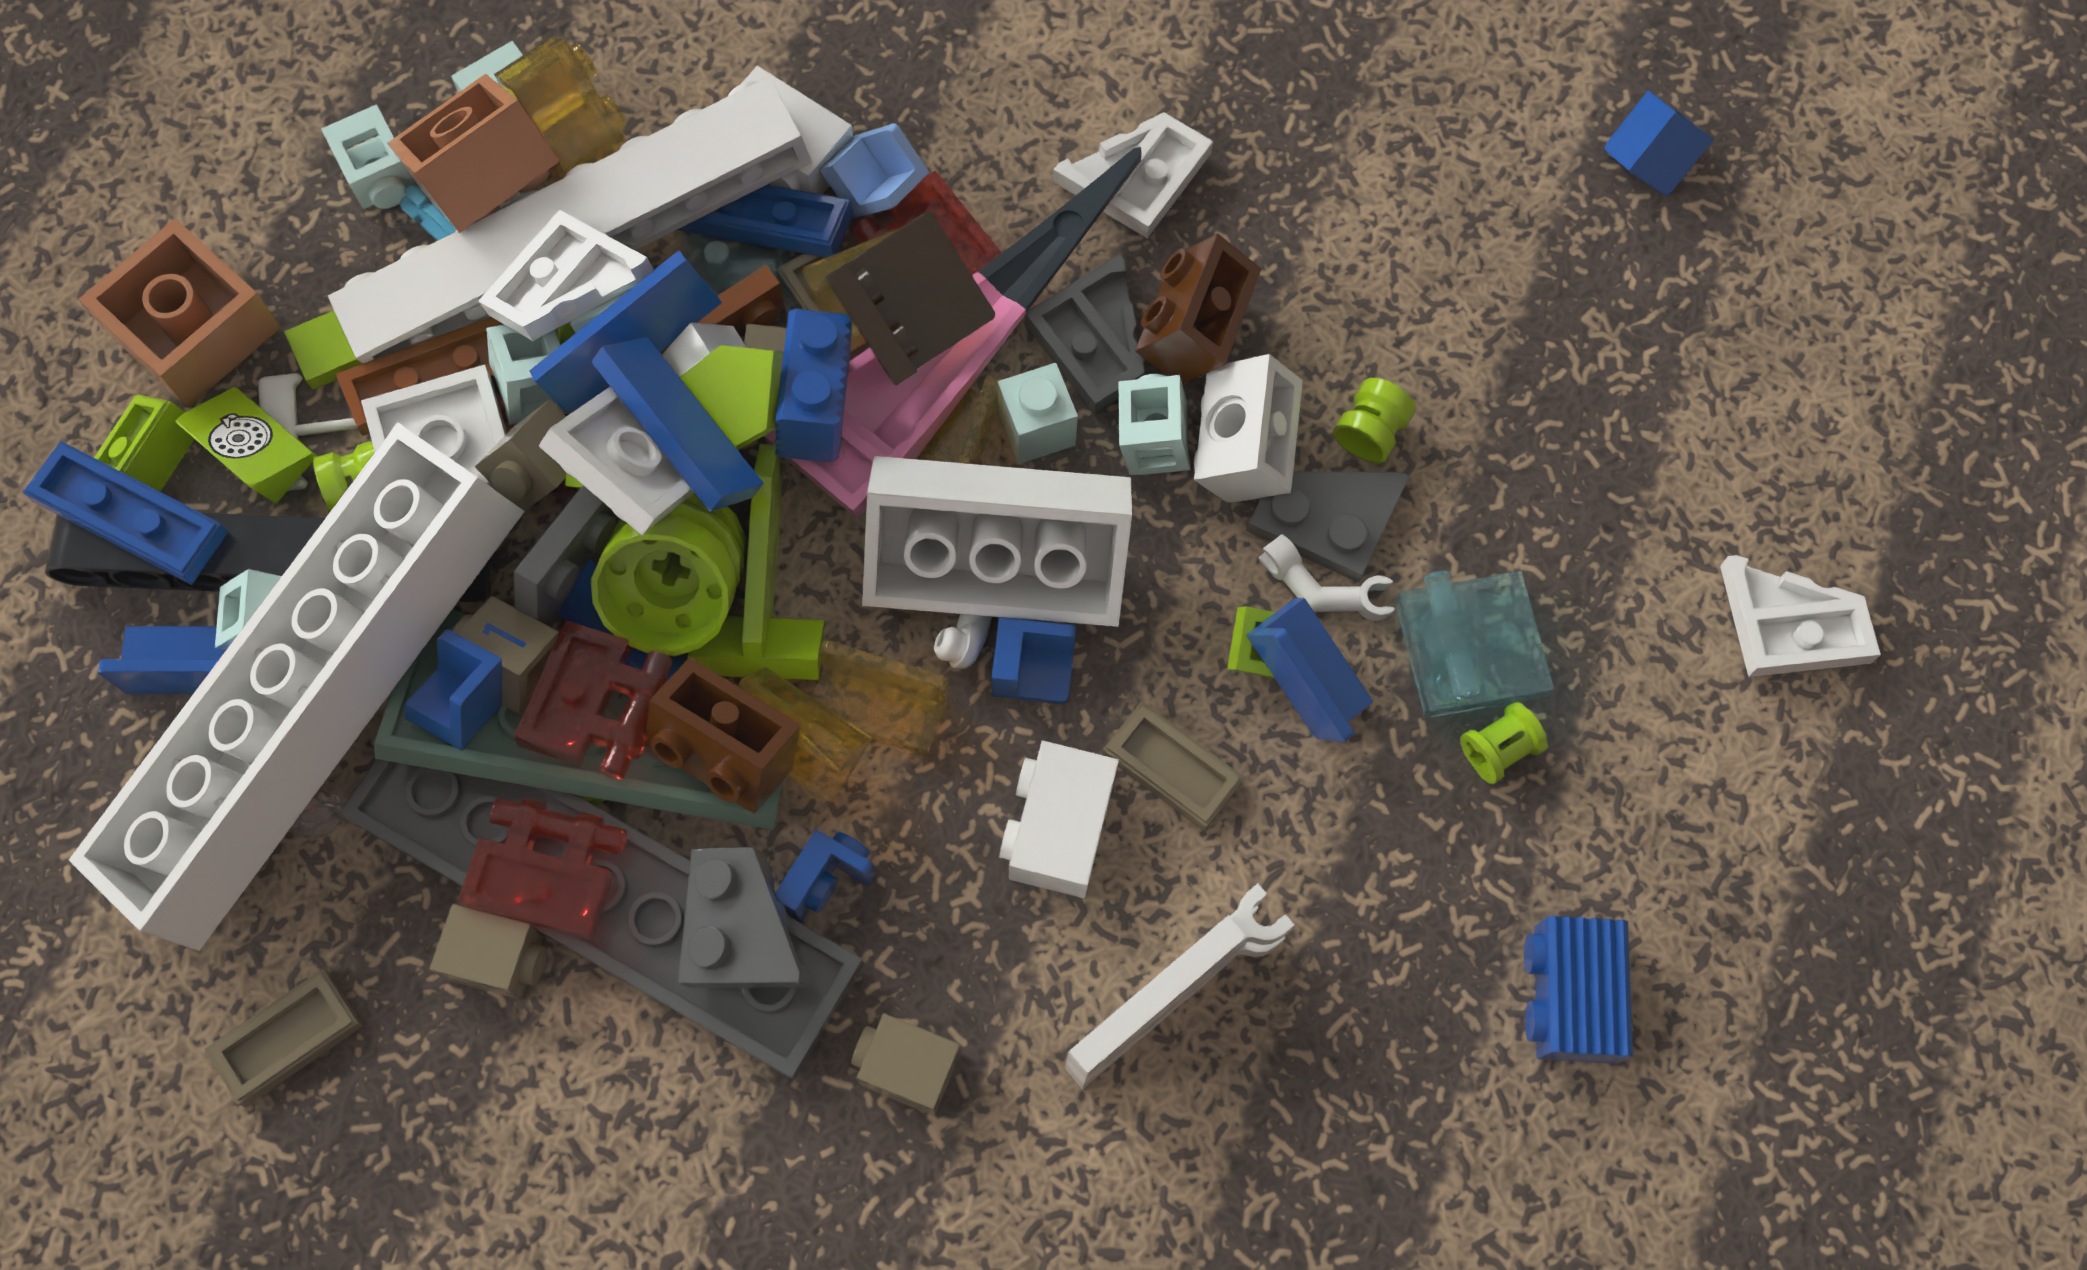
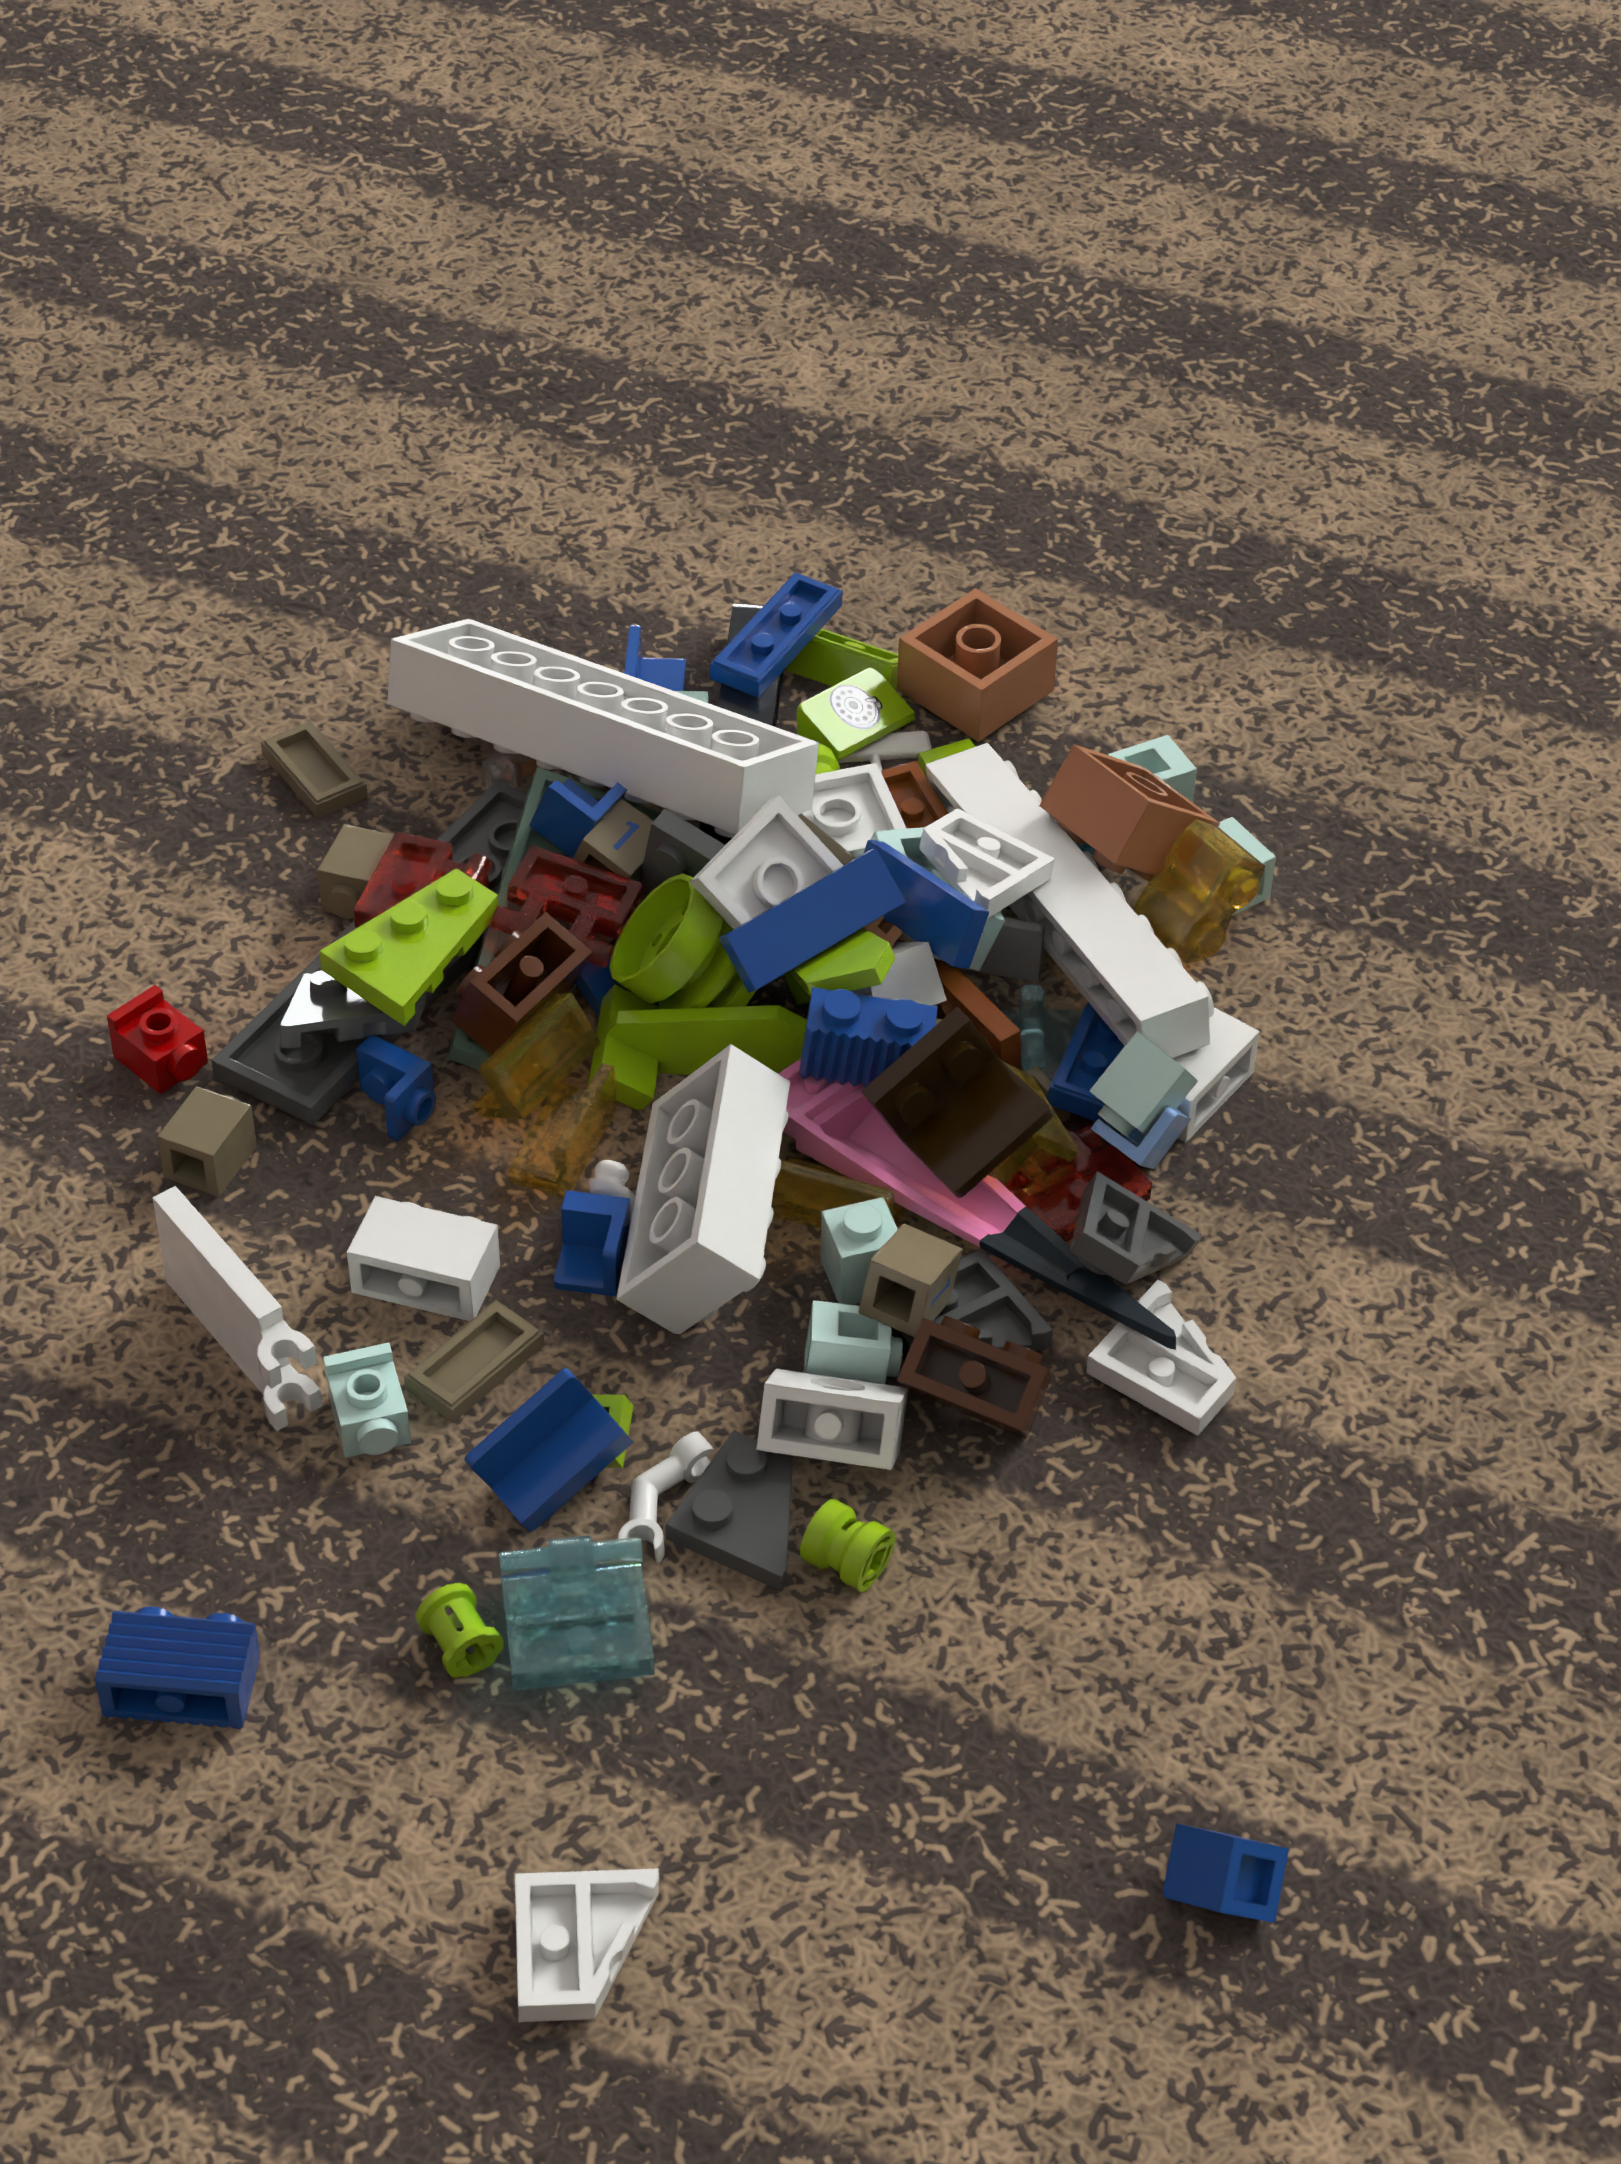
camera: 95 degrees right, 25 degrees down
(667, 854) = (411, 943): none -> lime wing
(757, 1170) = (156, 1040): none -> red brick
(861, 151) = (1141, 1086): none -> light aqua brick
(1018, 188) = (1126, 1234): none -> dark grey wing
(1105, 353) = (910, 1279): none -> dark tan brick
(1232, 866) = (367, 1400): none -> light aqua brick

